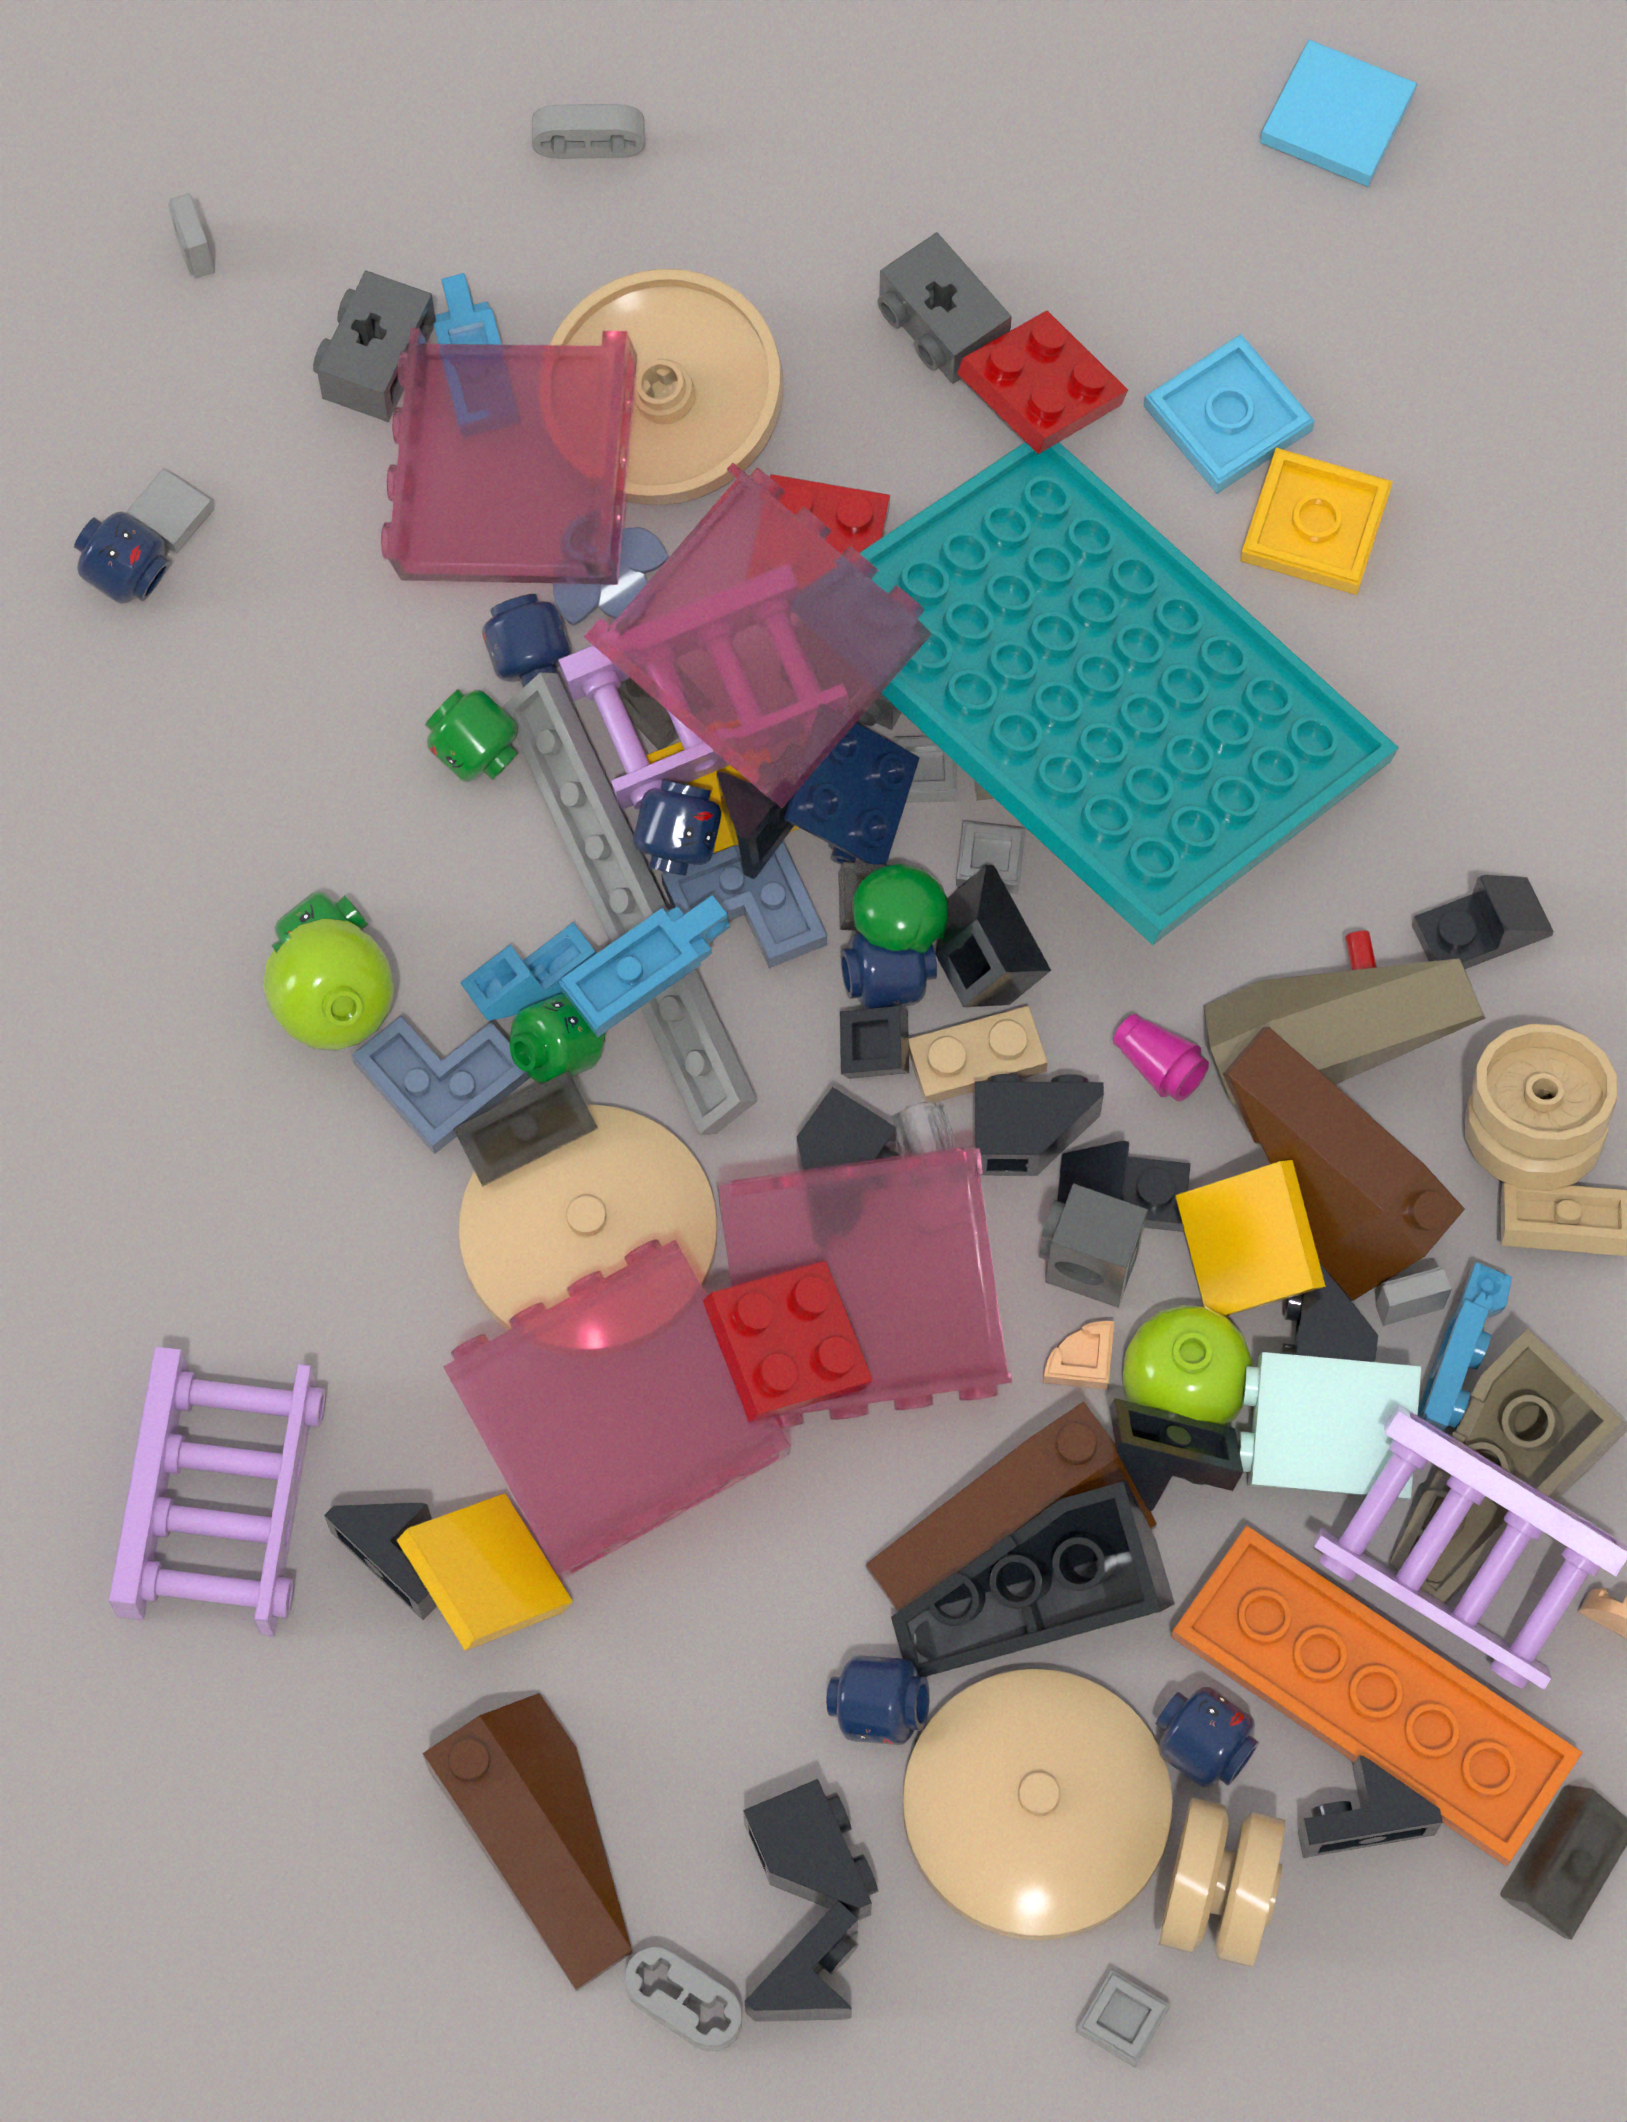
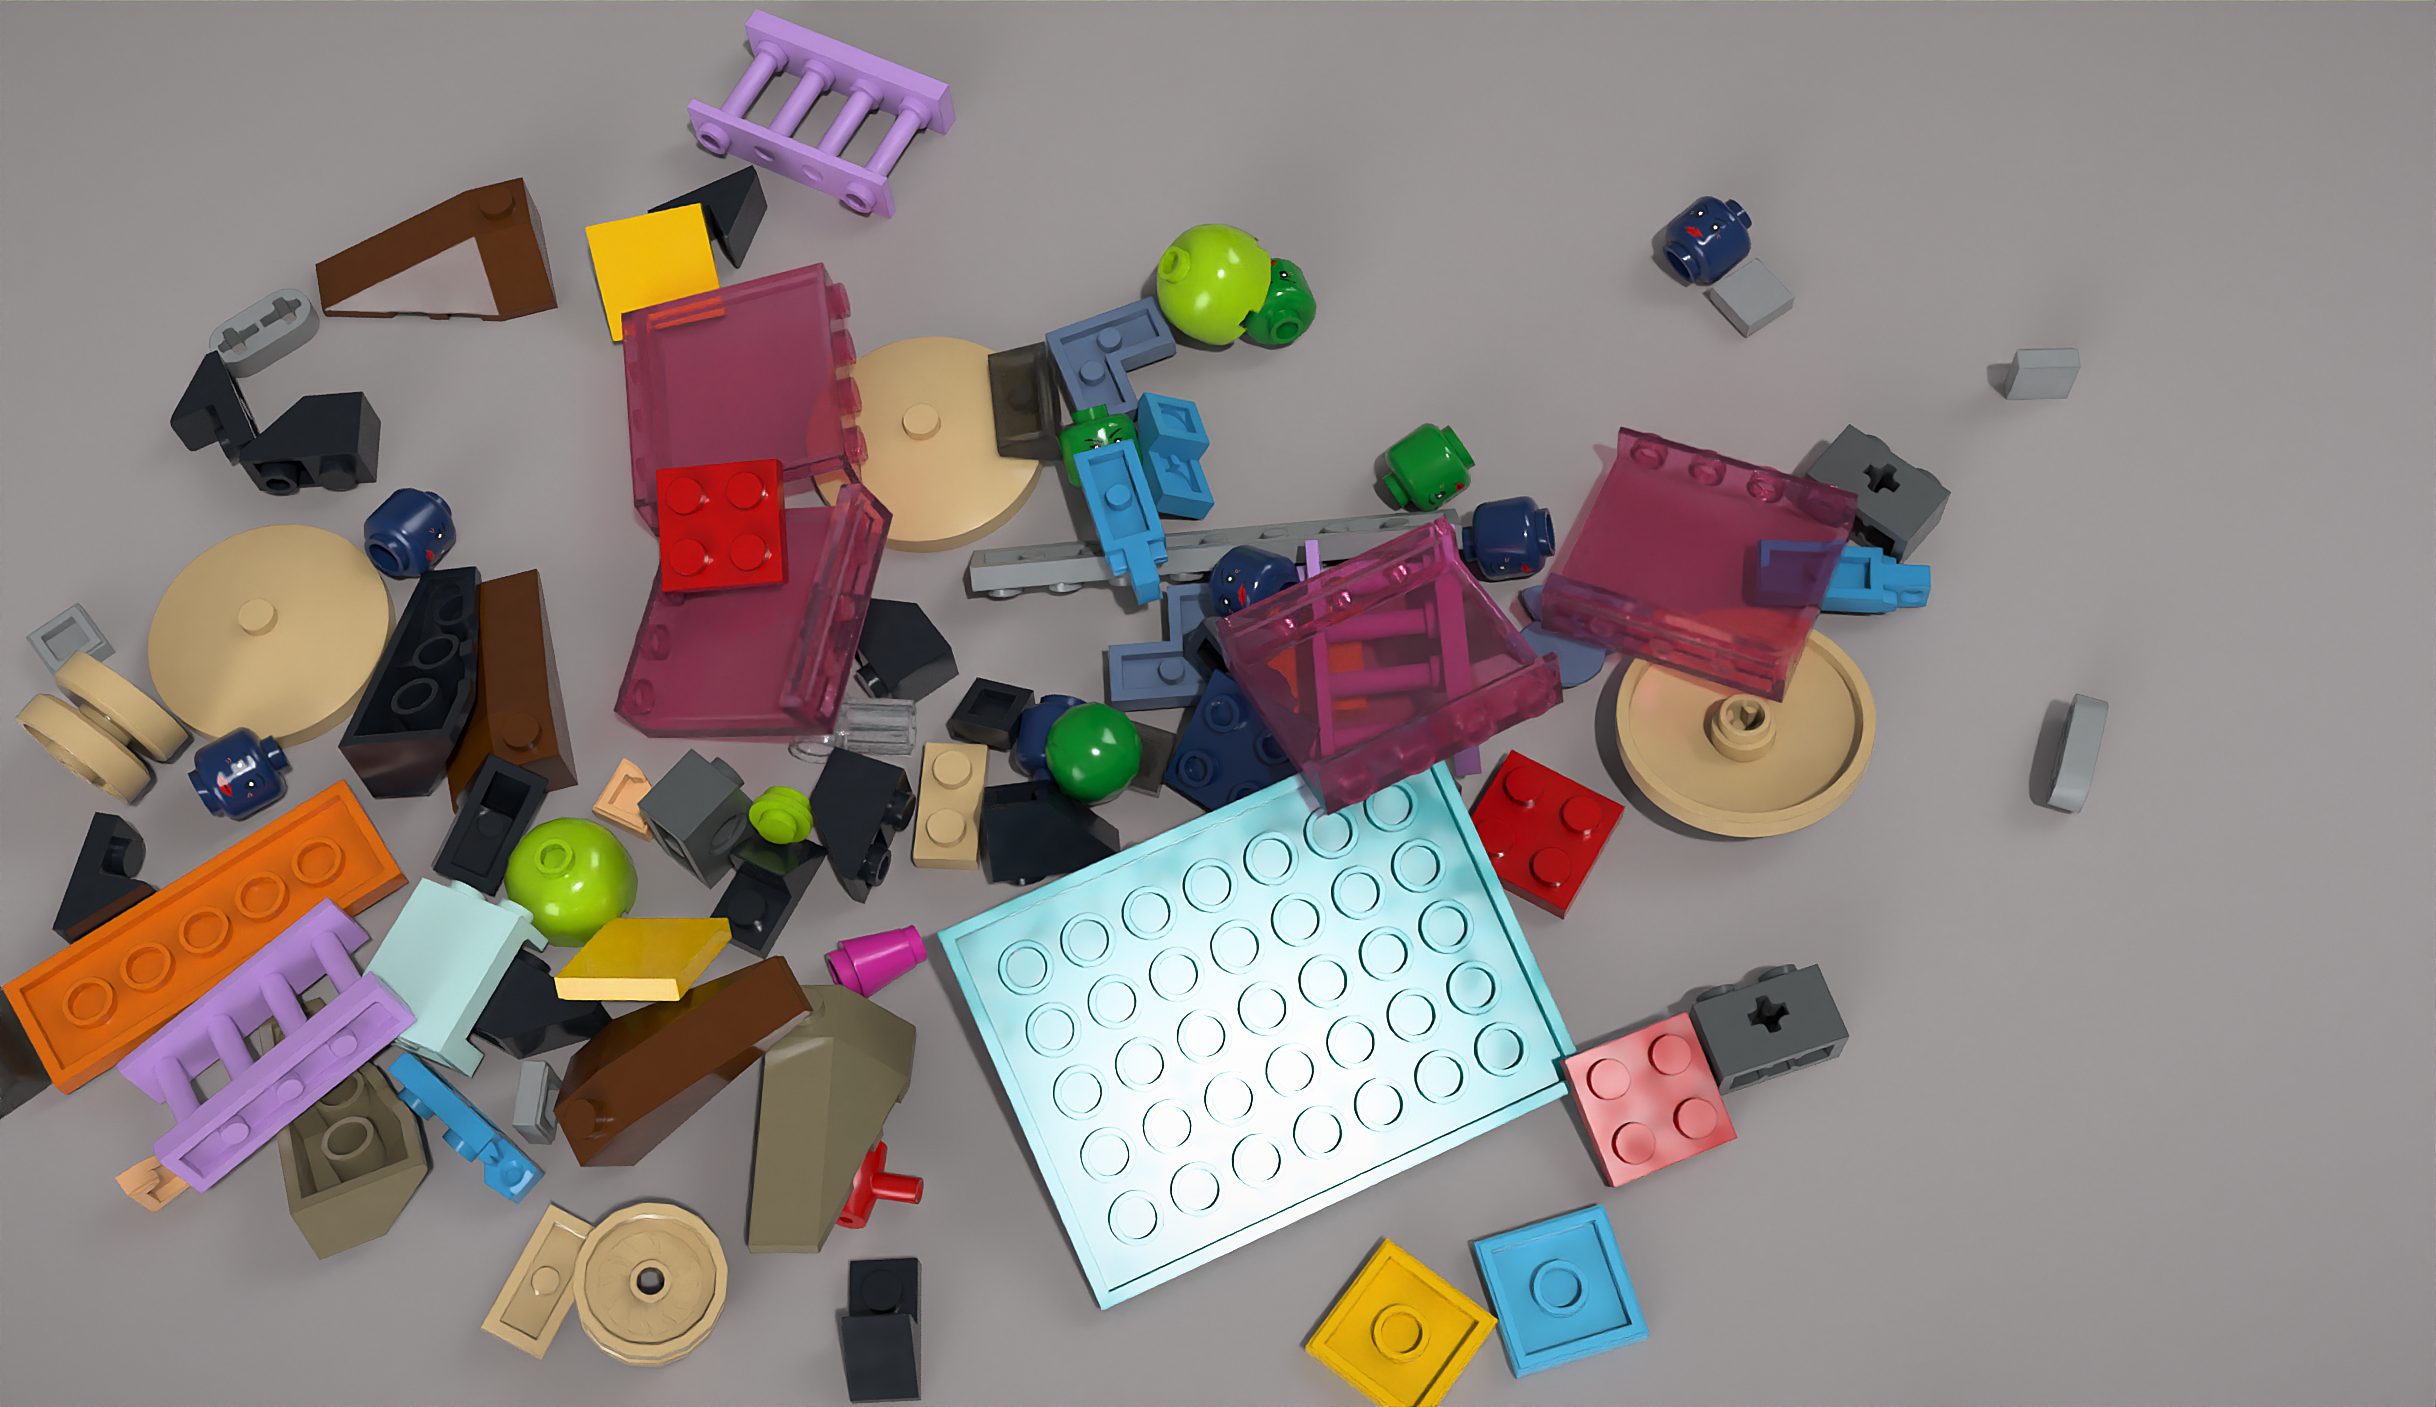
camera: 115 degrees right, 5 degrees down
(1059, 1171) = (782, 815): none -> lime plate

